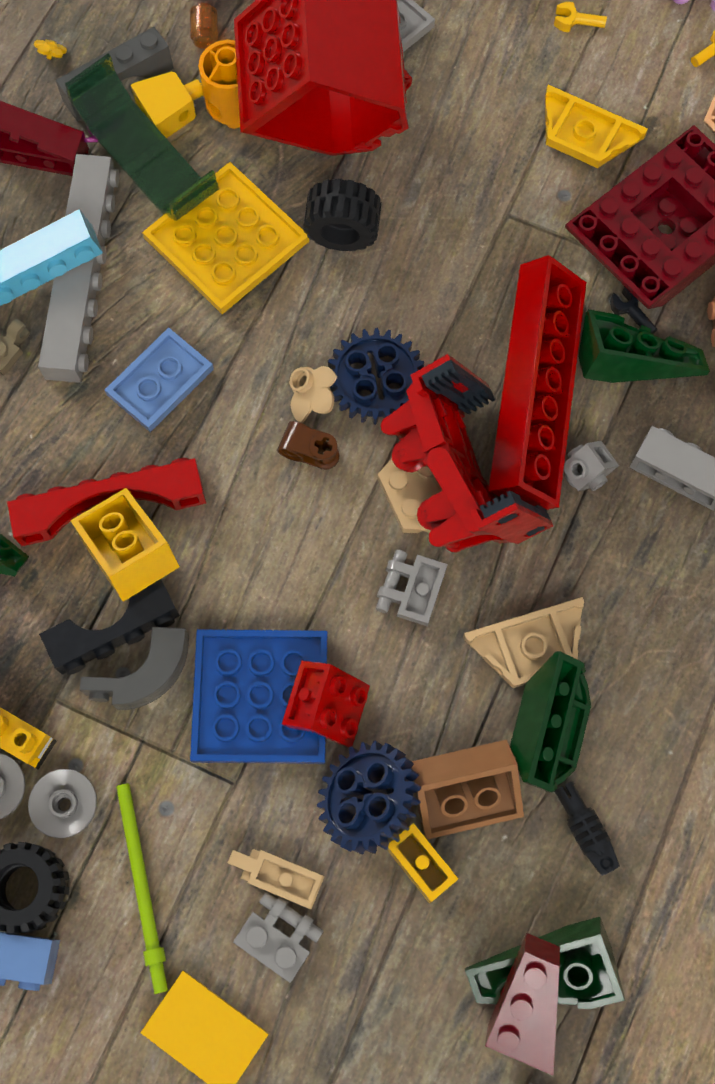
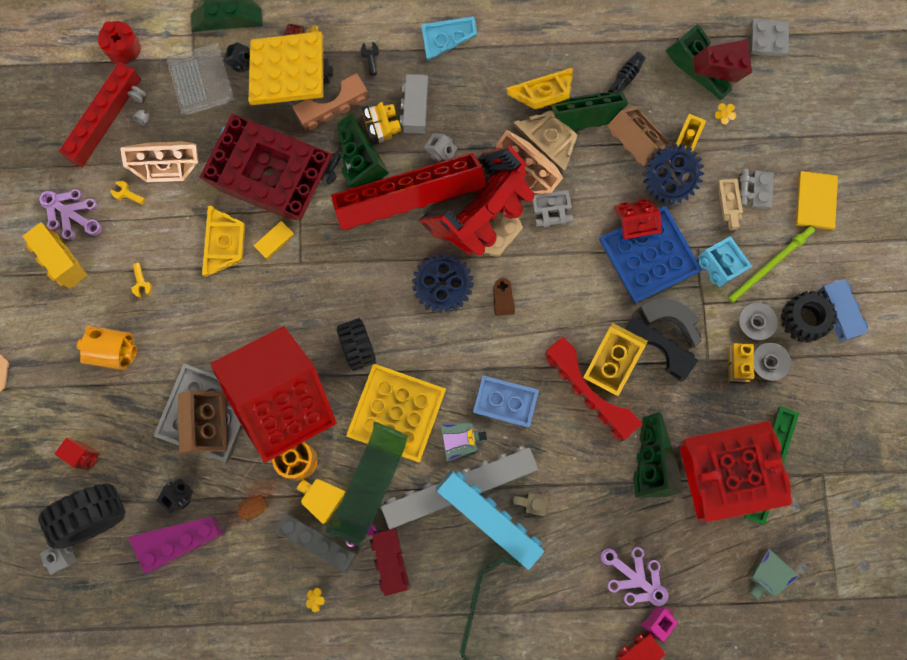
camera: 115 degrees left, 5 degrees up
(141, 295) = (461, 440): none -> torso
(184, 805) = (724, 261): none -> medium azure plate
(311, 391) = (471, 310): tan plate -> none
(437, 962) = (725, 113): none -> yellow plant
(501, 582) = (541, 173): none -> light nougat wedge
(556, 193) = (274, 240): none -> yellow tile
(617, 675) = (543, 90): none -> yellow wing
(675, 402) = (377, 122): none -> hips

